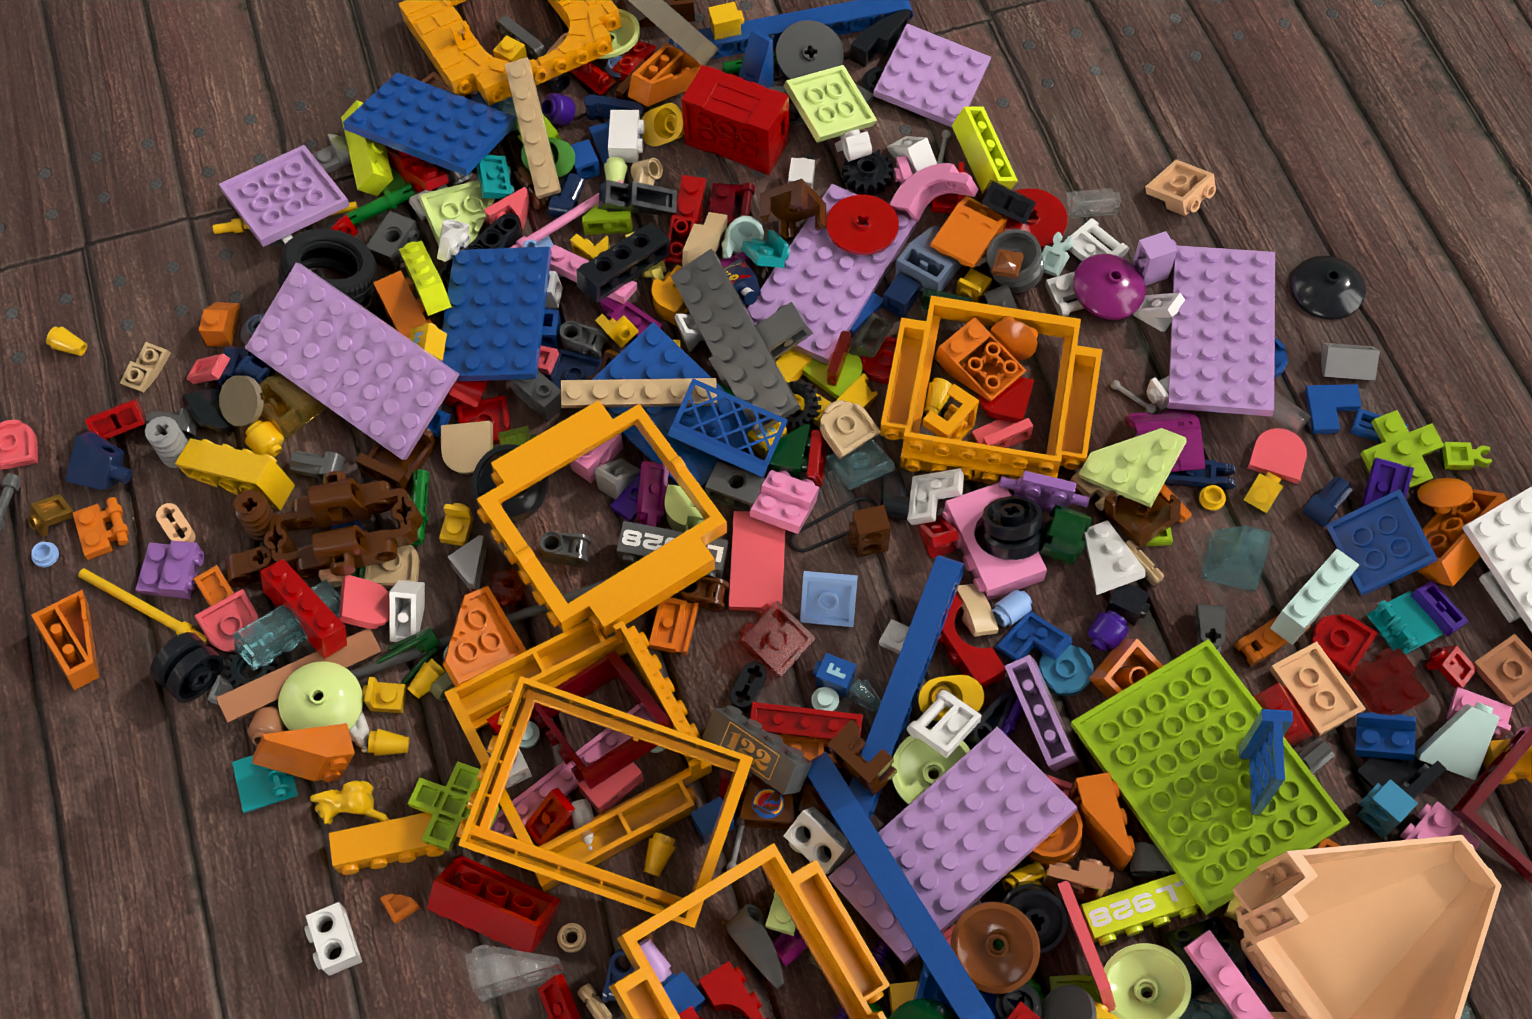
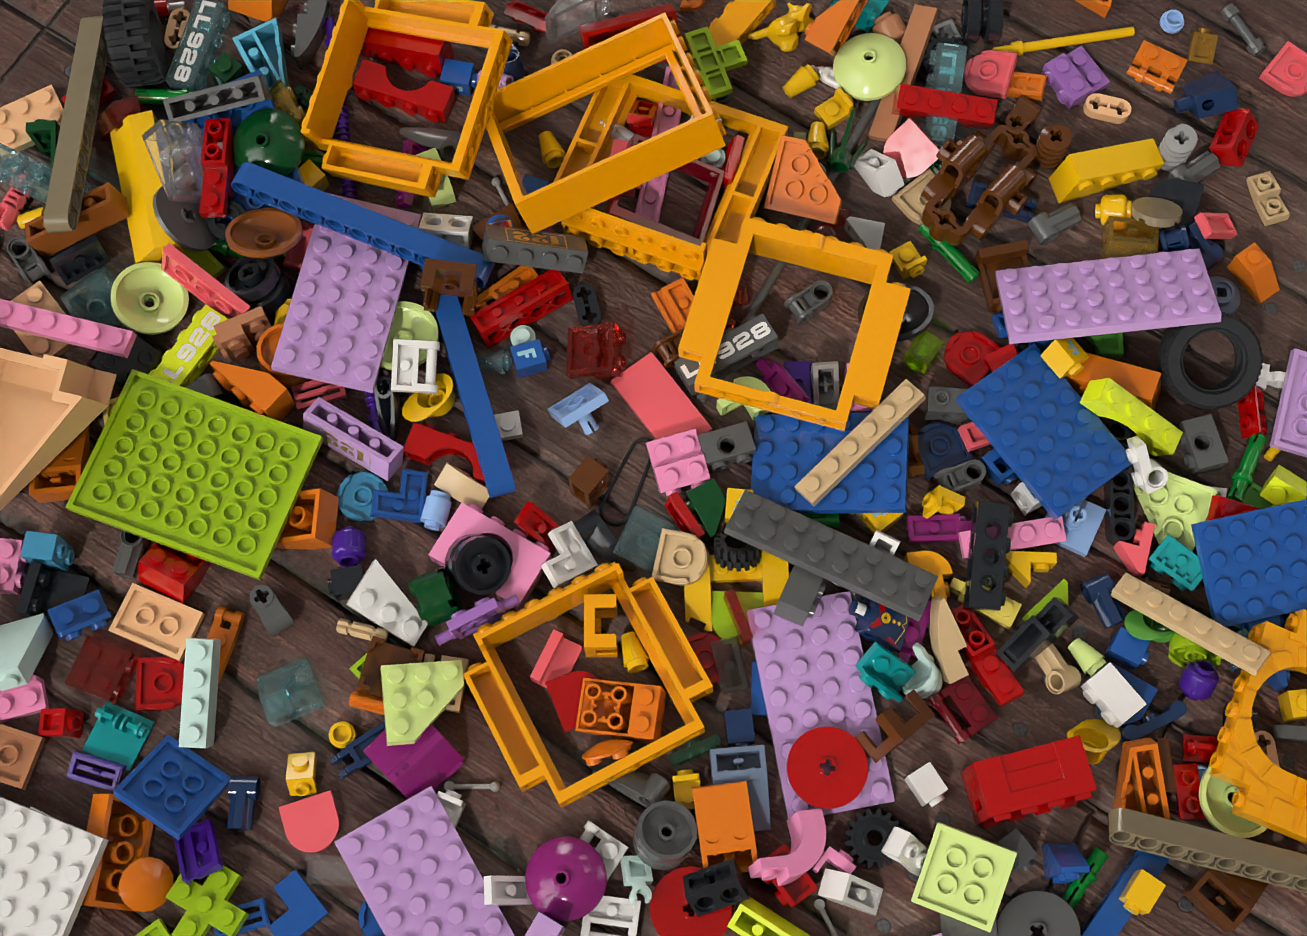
camera: 140 degrees right, 10 degrees up
(465, 444) = (961, 321): tan tile -> none
(561, 221) = (1089, 524): bright pink bar -> none
(718, 448) = (760, 453): blue fence -> none
(1007, 263) = (662, 810): dark orange tile -> none
(1266, 755) = (147, 481): blue fence -> none

